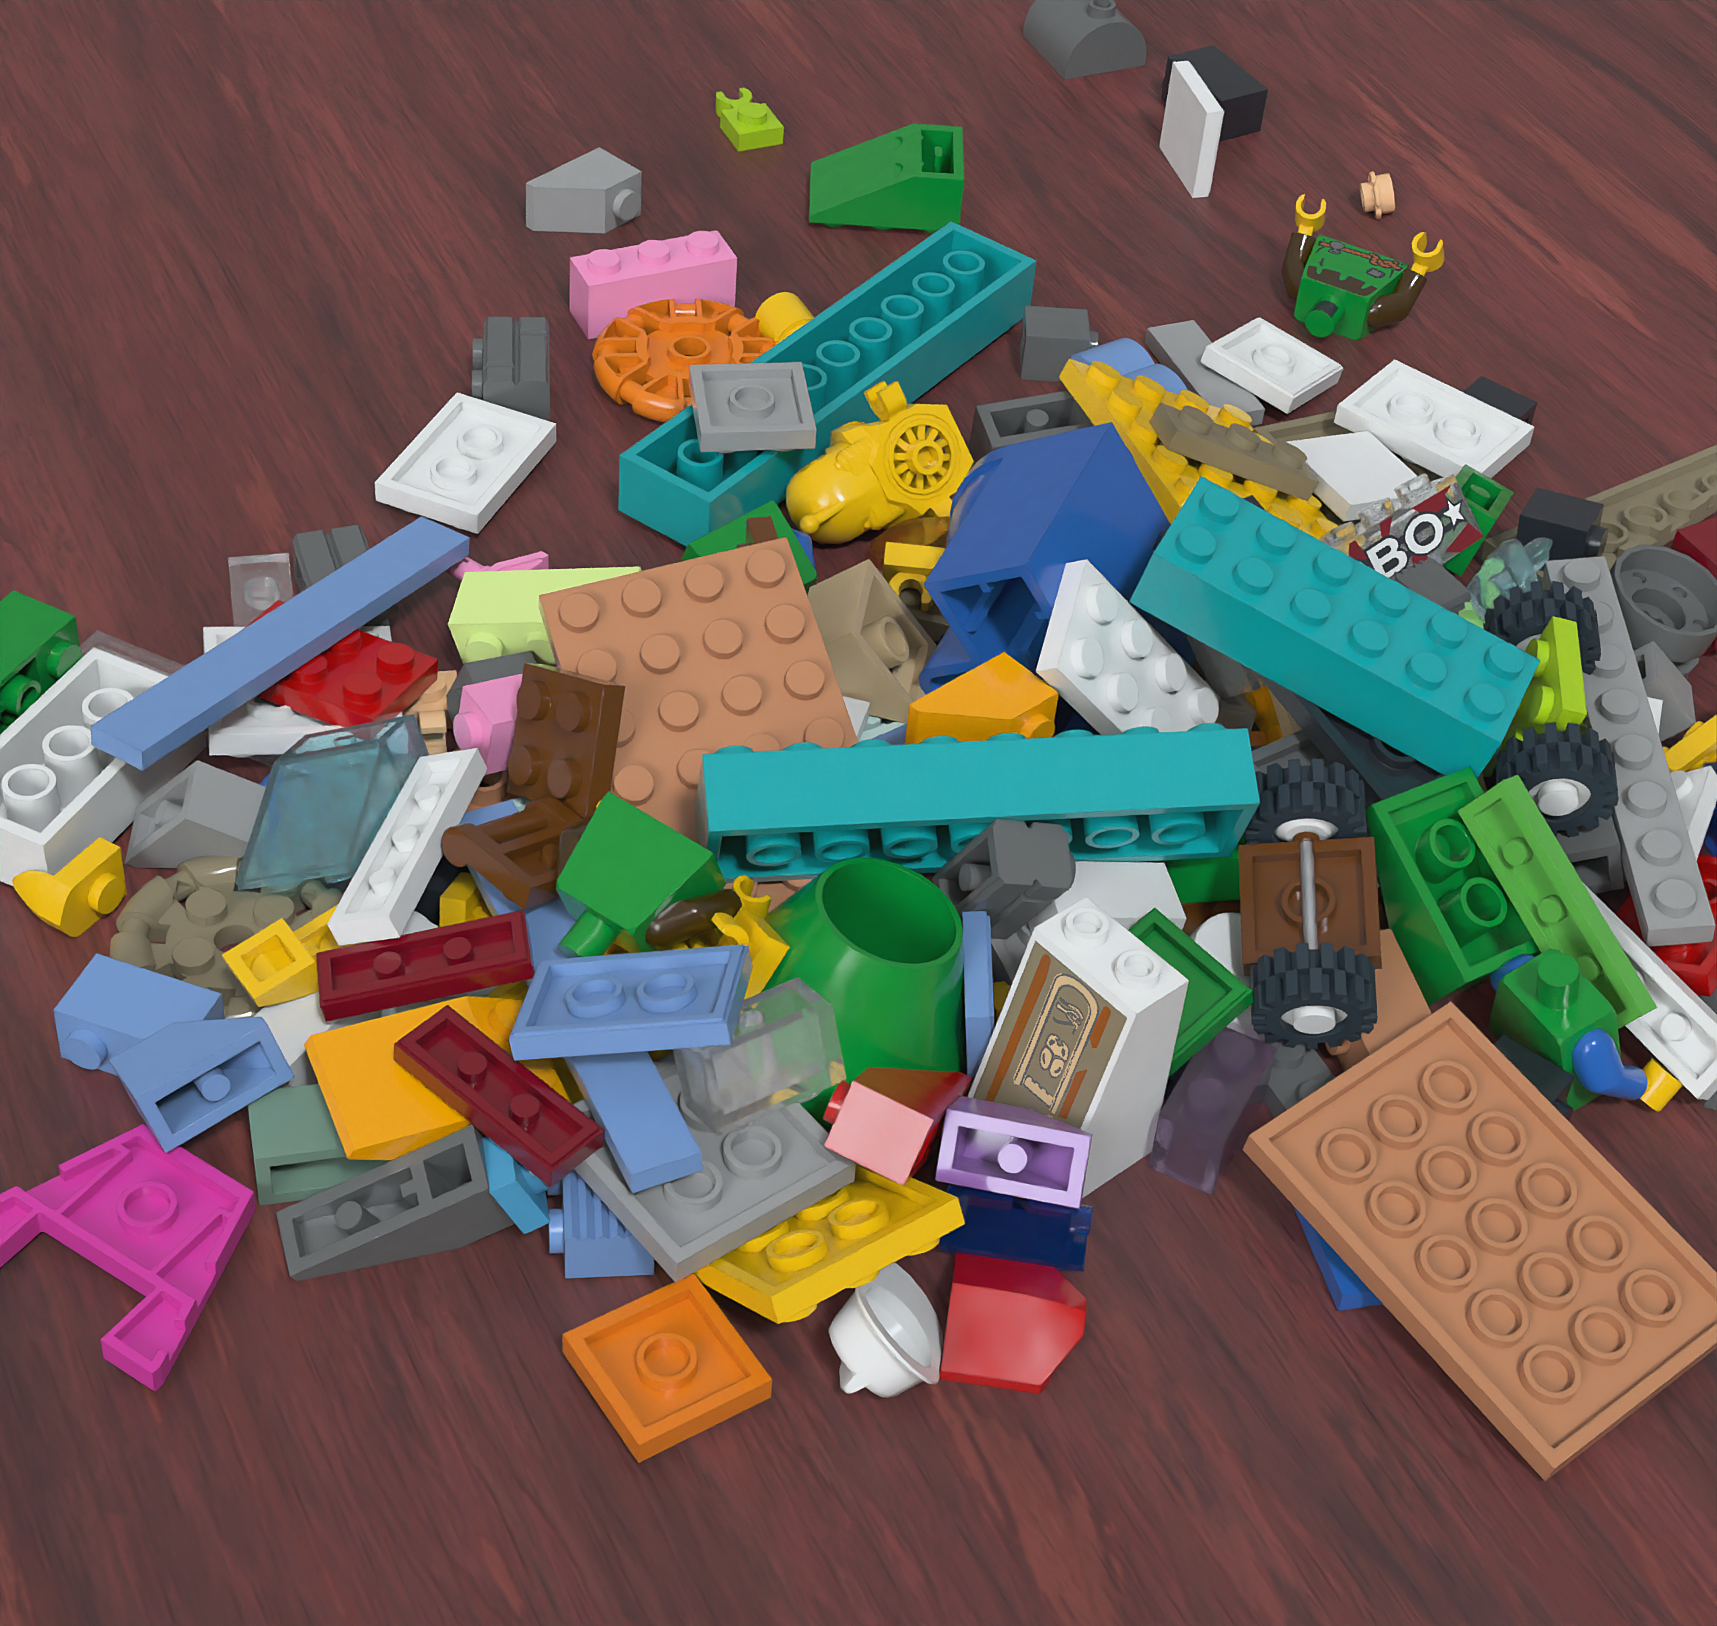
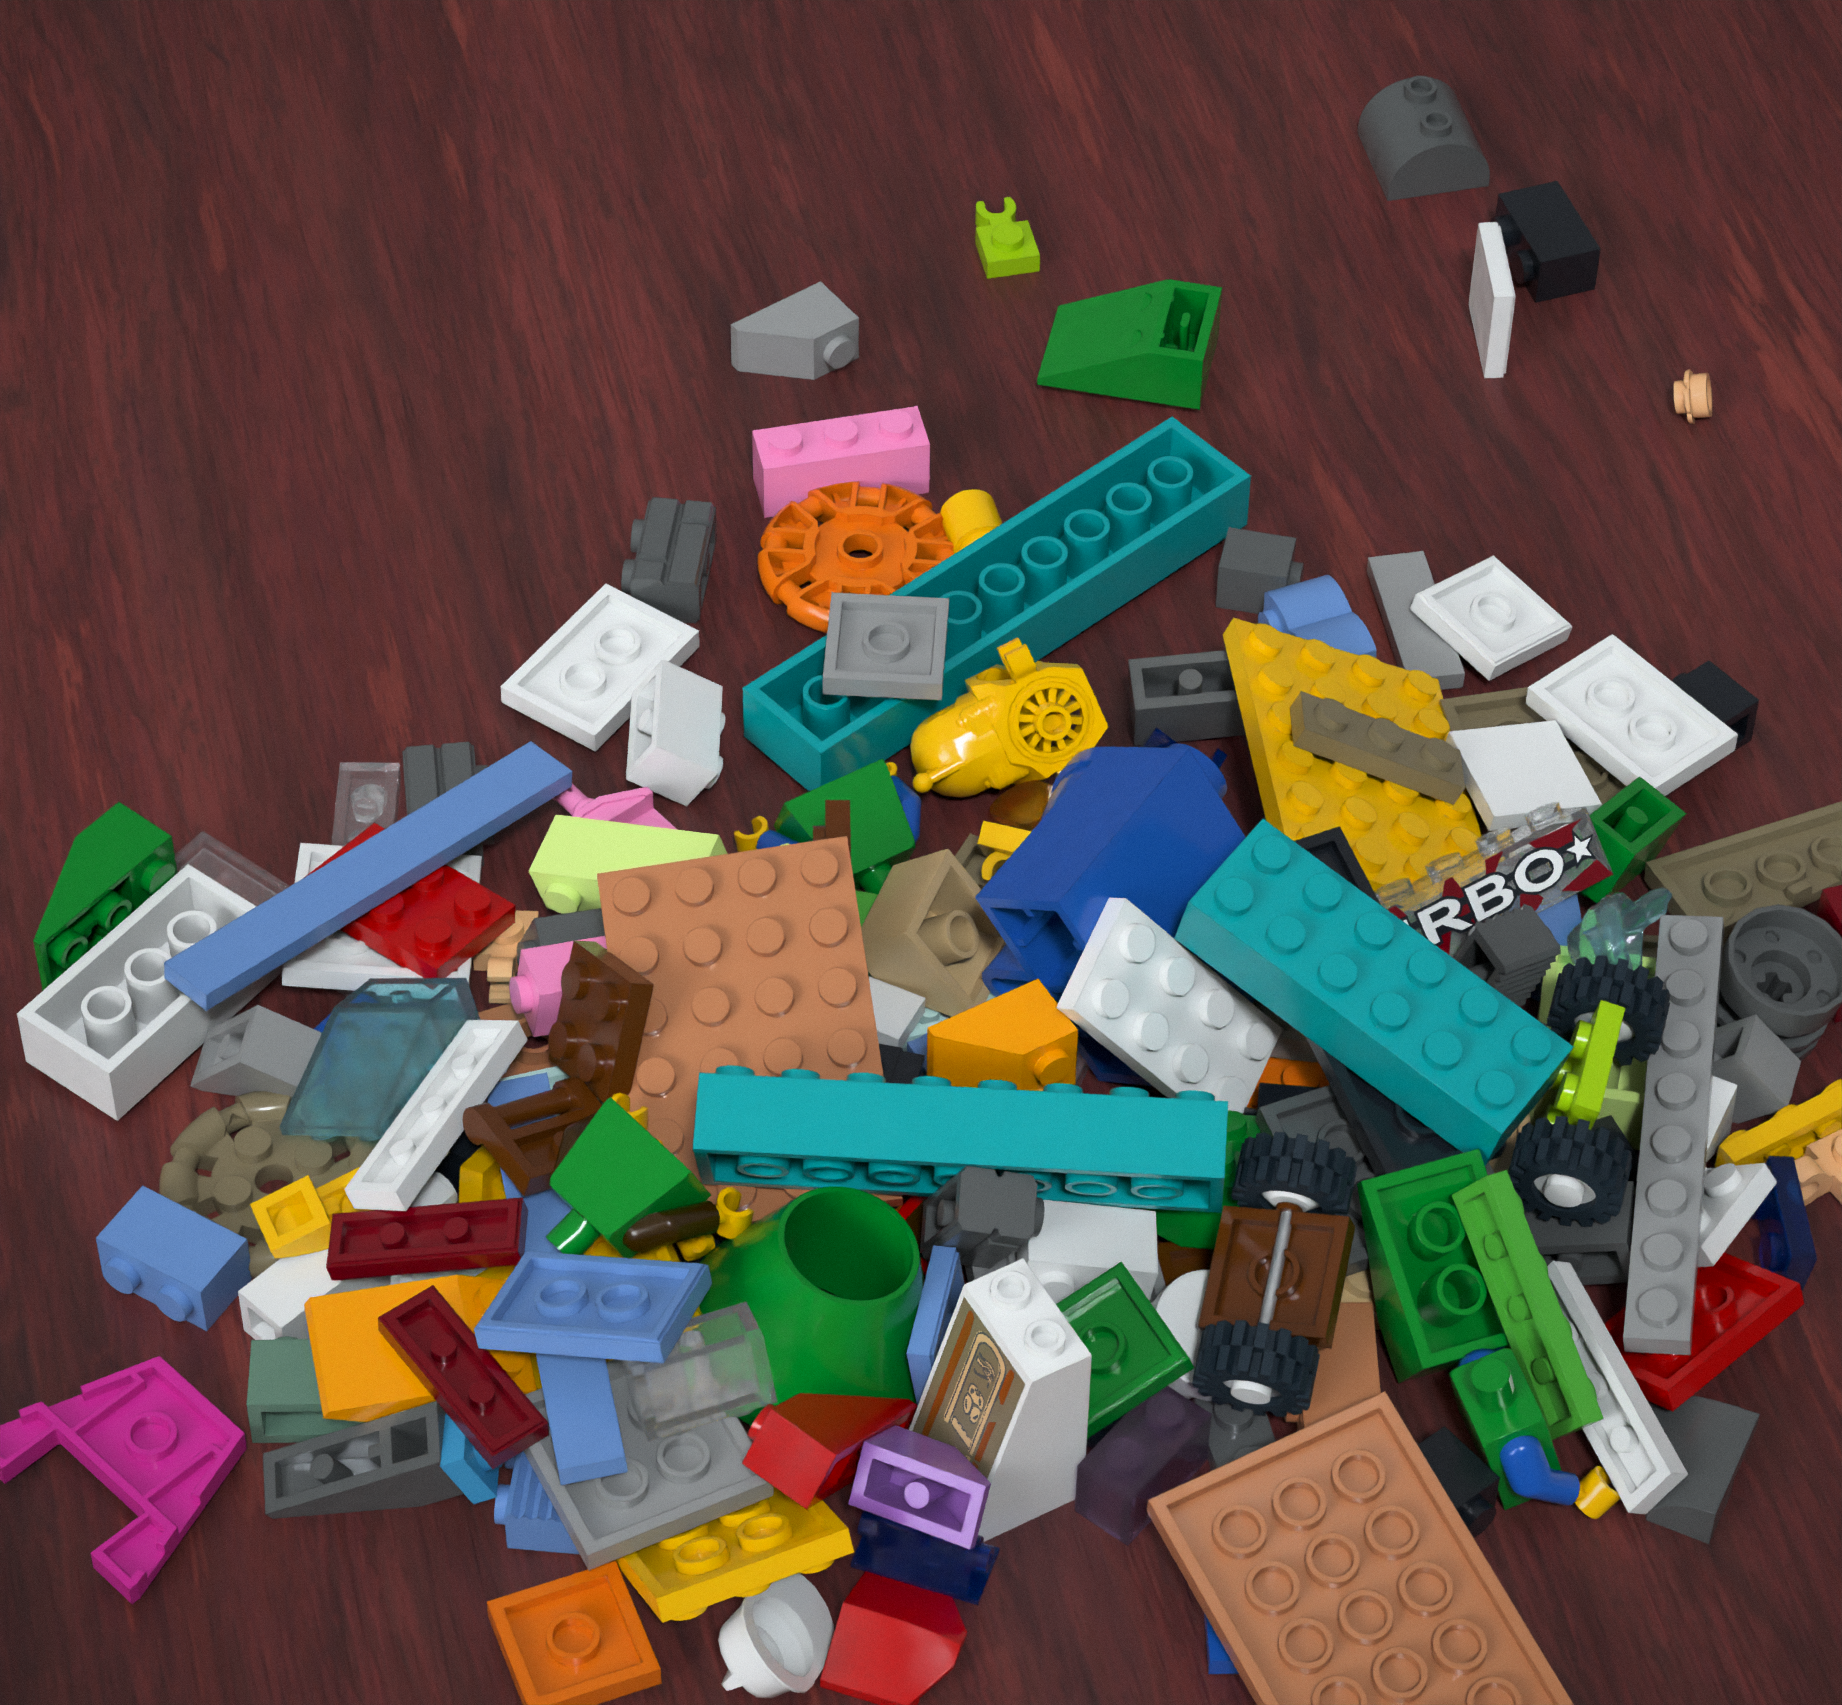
camera: 15 degrees right, 5 degrees up
(79, 891) = (142, 1115): yellow plate -> none
(200, 1074) = (209, 1320): medium blue slope -> none
(556, 505) = (675, 733): none -> white brick
(764, 944) = (726, 1259): yellow tile -> none
(1349, 287) = (1610, 522): torso -> none
(1565, 520) = (1713, 870): black brick -> none

